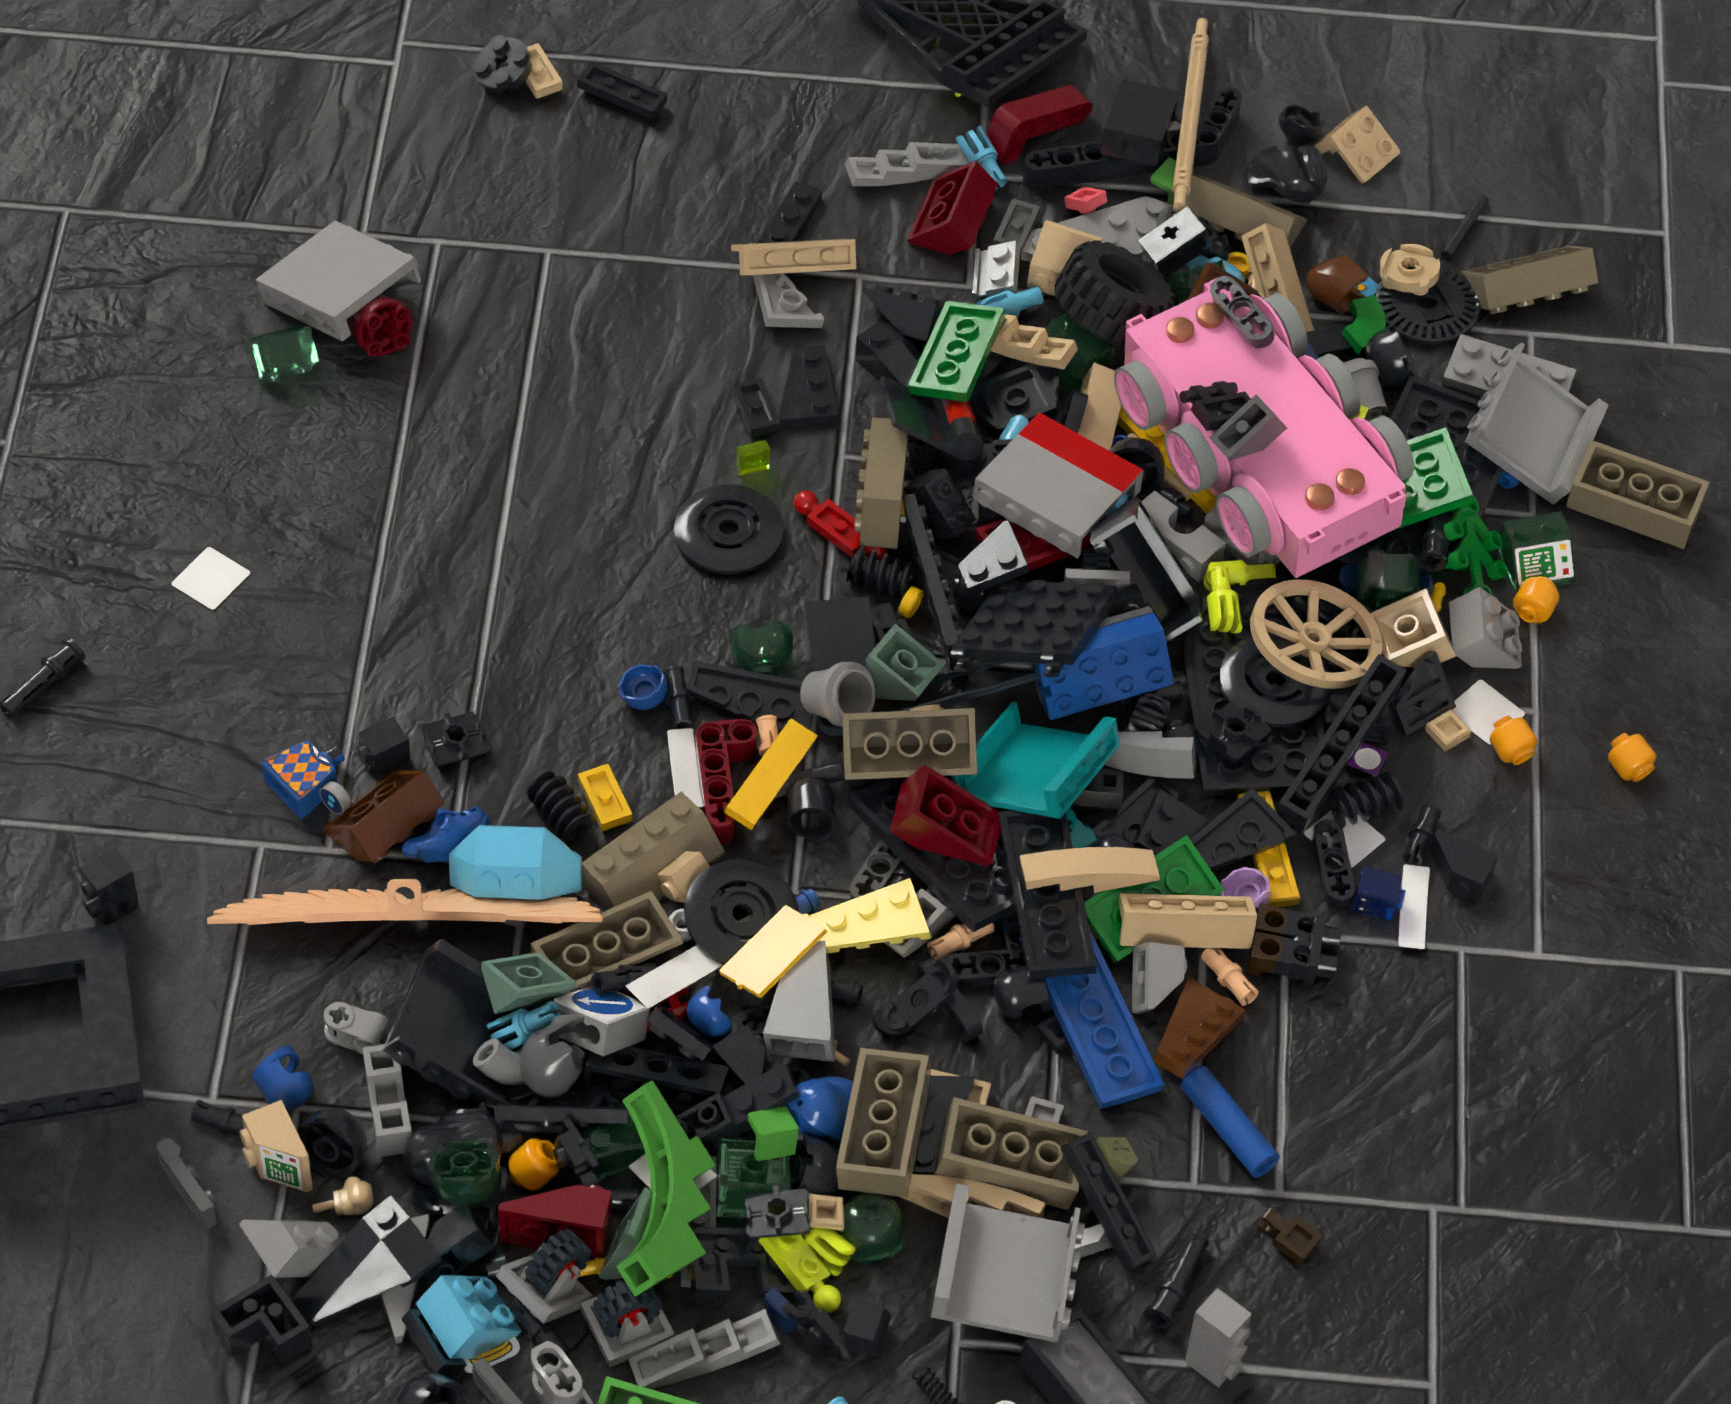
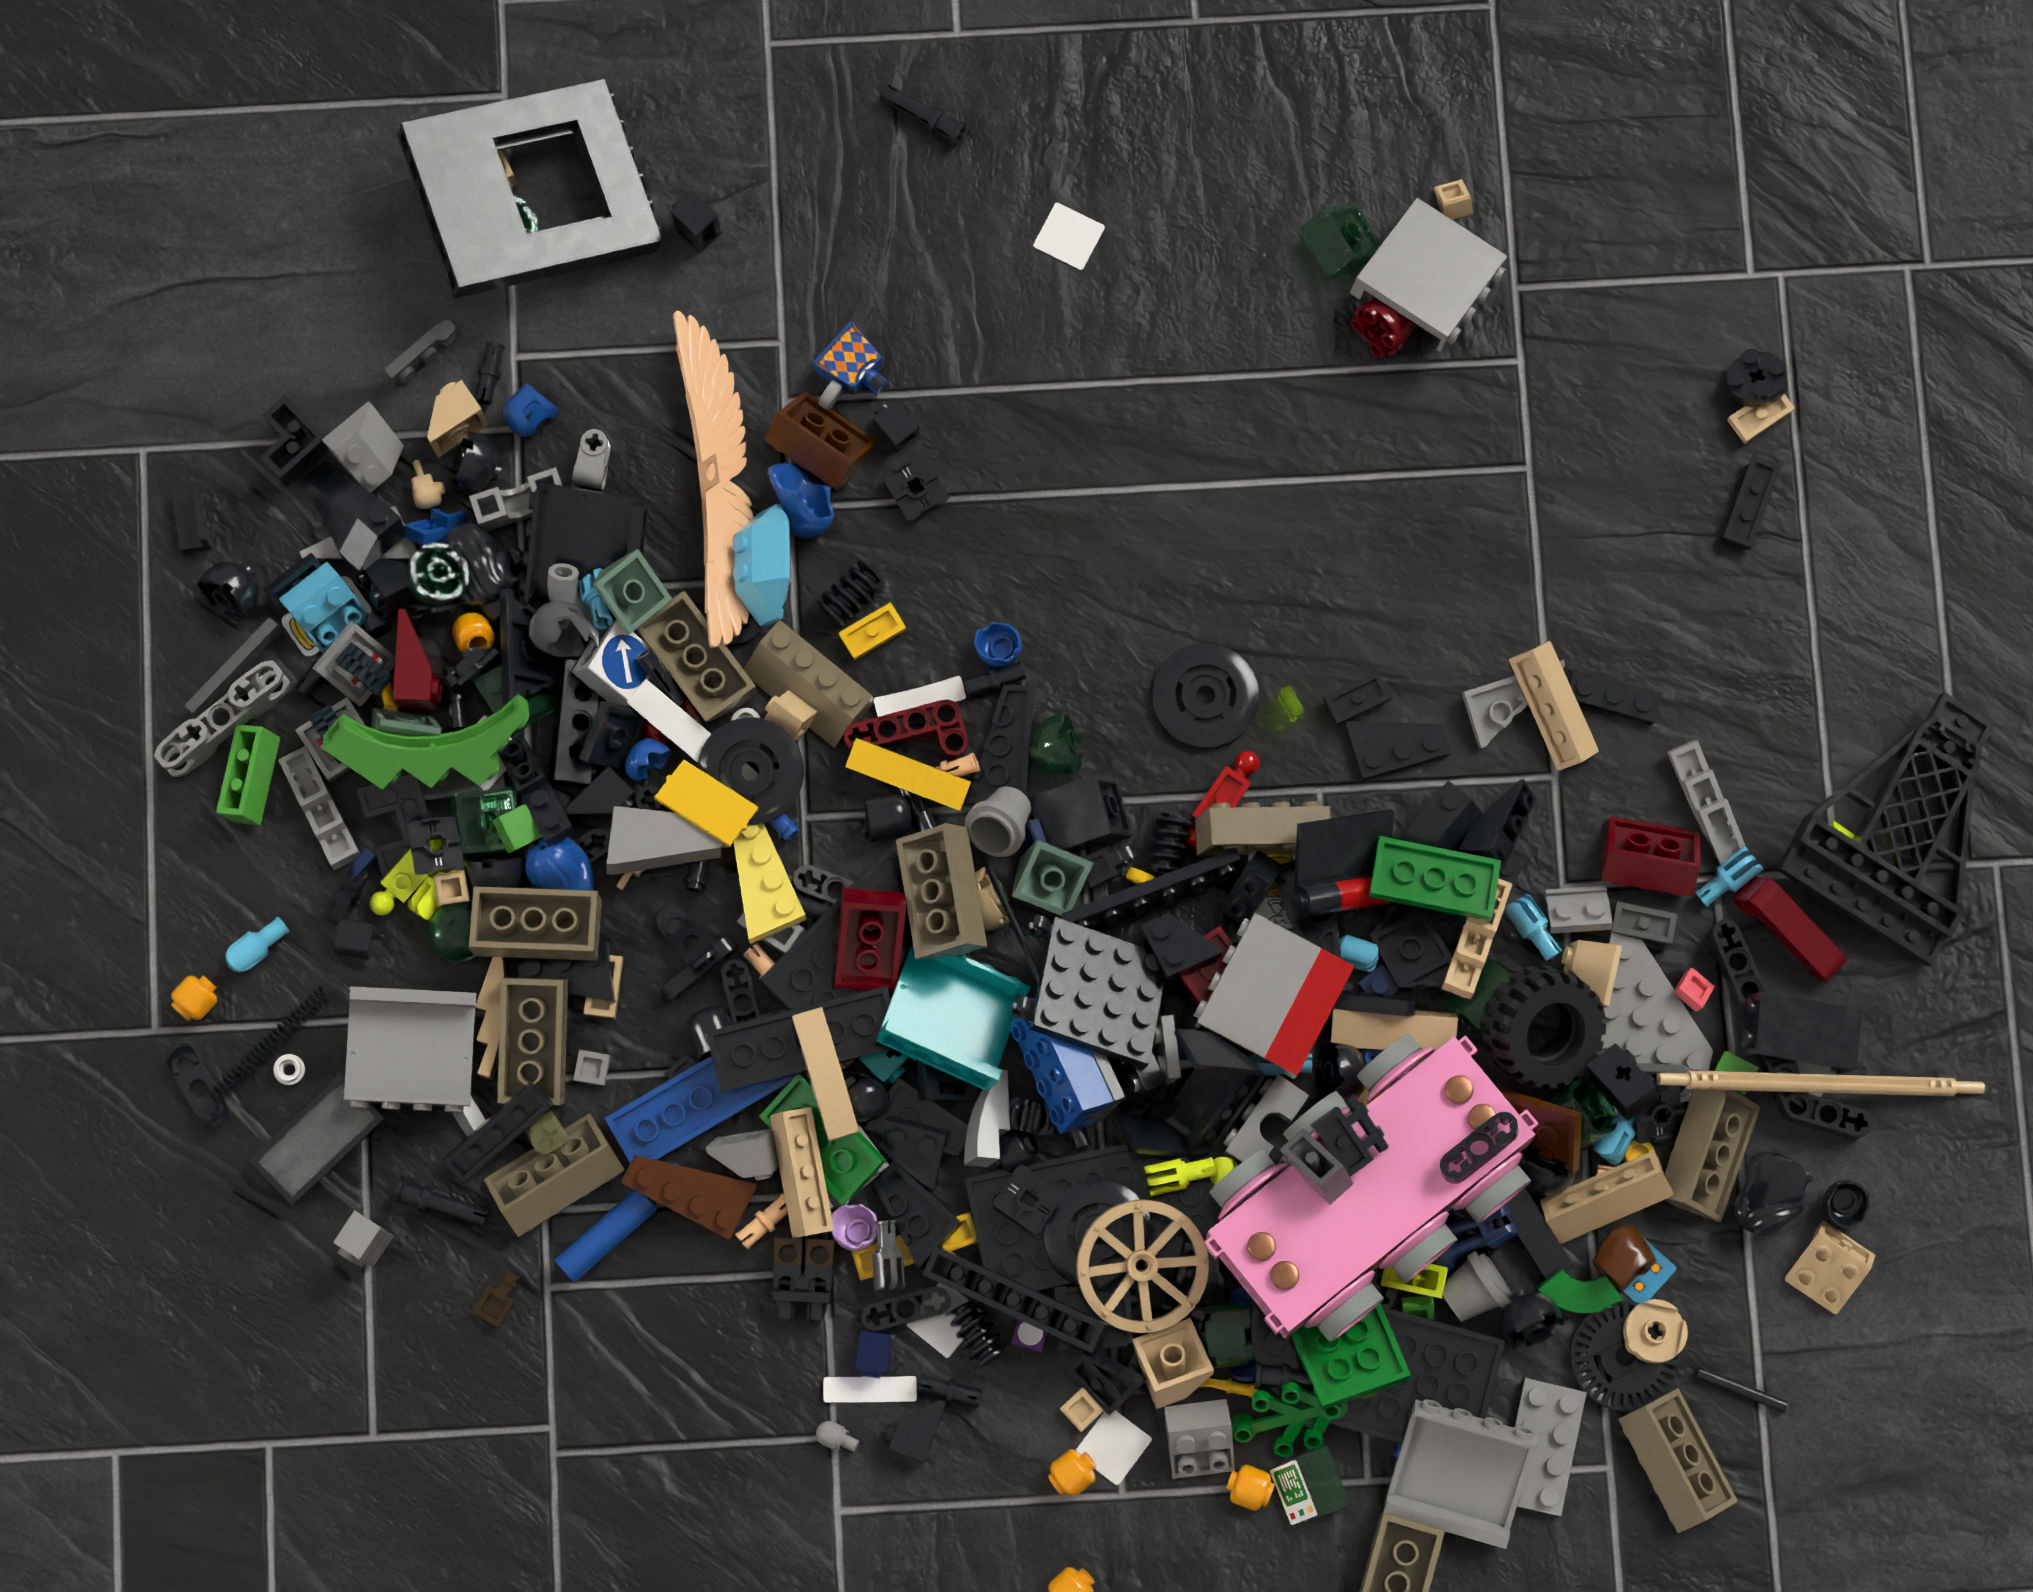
camera: 85 degrees right, 25 degrees up
(257, 262) = (1454, 199): none -> tan slope
(399, 1188) = (435, 528): none -> blue slope
(1169, 1178) = (544, 1185): none -> dark tan slope
(1282, 861) = (888, 1259): none -> dark grey arm
(1462, 941) = (835, 1436): none -> light grey cylinder

